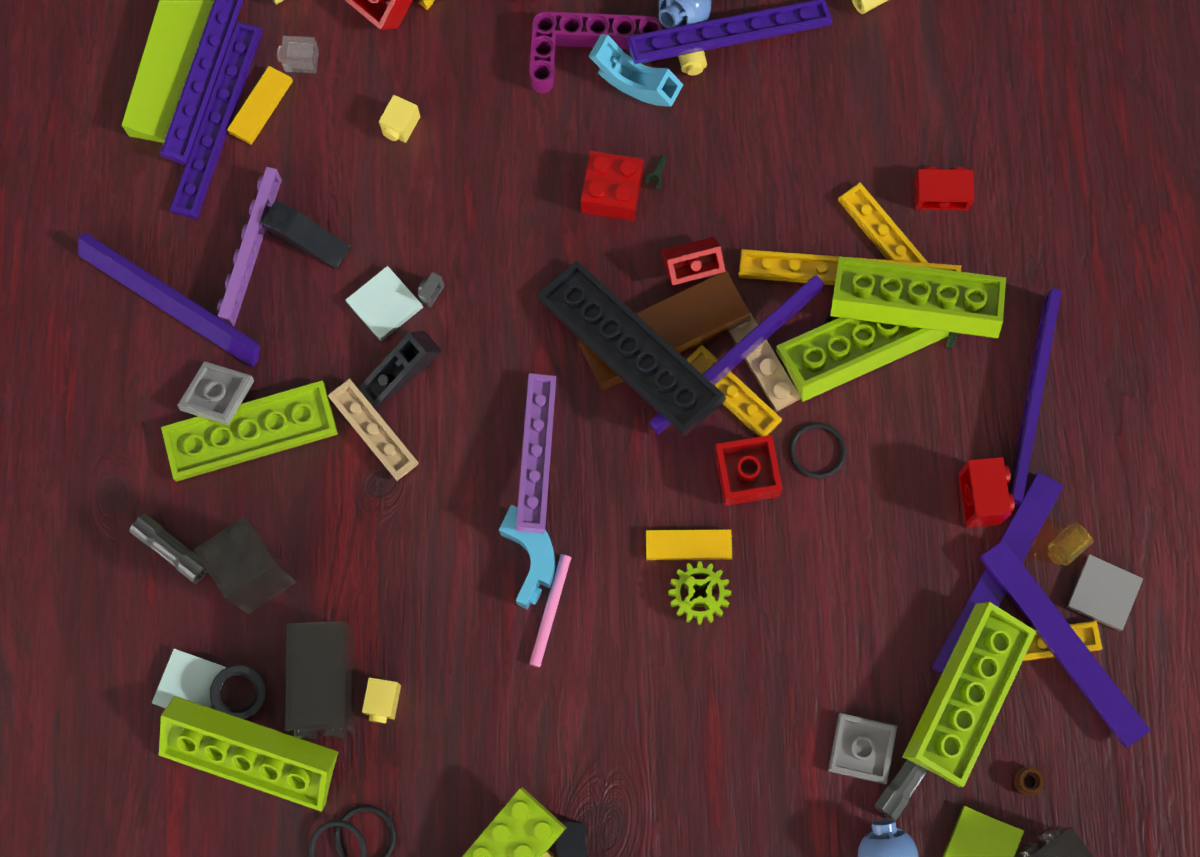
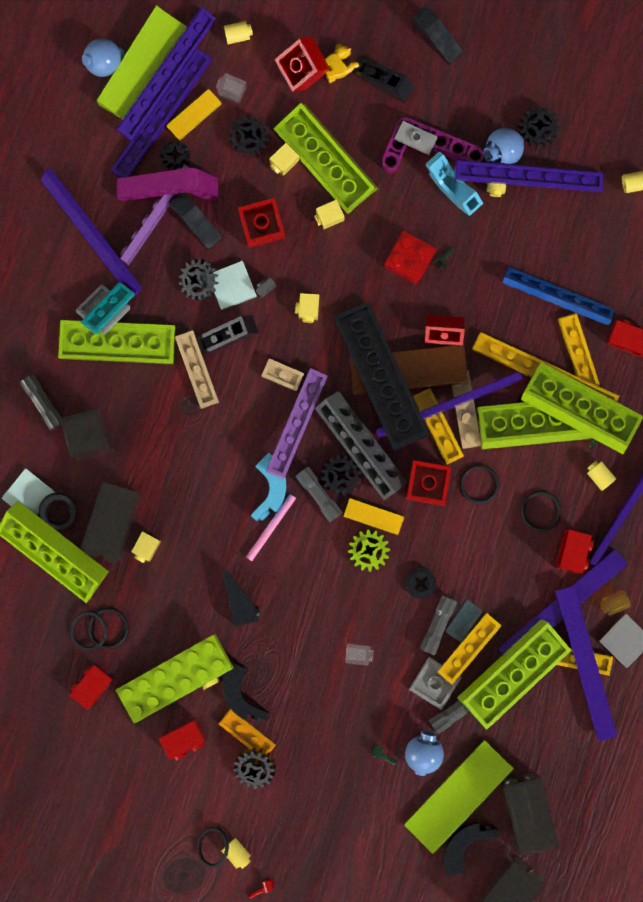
camera: 15 degrees right, 10 degrees up
(112, 70) = (102, 57): none -> medium blue brick
(220, 387) = (107, 308): none -> teal tile
(244, 172) = (168, 149): none -> black gear
(251, 193) = (167, 183): none -> magenta beam
(338, 295) = (196, 280): none -> black gear
(344, 110) = (244, 143): none -> black gear
(396, 206) = (261, 223): none -> red brick
(454, 100) = (325, 158): none -> lime arch
(484, 167) = (329, 214): none -> light yellow brick
(494, 396) = (282, 375): none -> tan plate
(497, 295) = (308, 307): none -> light yellow brick
(546, 733) = (241, 605): none -> black slope
(564, 31) = (416, 138): none -> light grey plate
(583, 528) = (310, 483): none -> dark grey axle
(634, 505) = (331, 468): none -> black gear
(636, 452) = (361, 445): none -> dark grey brick
(739, 745) = (358, 654): none -> clear brick
(801, 609) = (430, 583): none -> black gear
(828, 167) = (558, 296): none -> blue plate
(835, 664) = (443, 613): none -> dark grey axle
(869, 645) = (463, 621): none -> clear light blue plate
(892, 681) = (469, 649): none -> yellow plate
(916, 482) = (558, 509): none -> black tyre
(978, 379) = (600, 475): none -> light yellow brick
(1035, 774) = (534, 744): reddish brown plate -> none

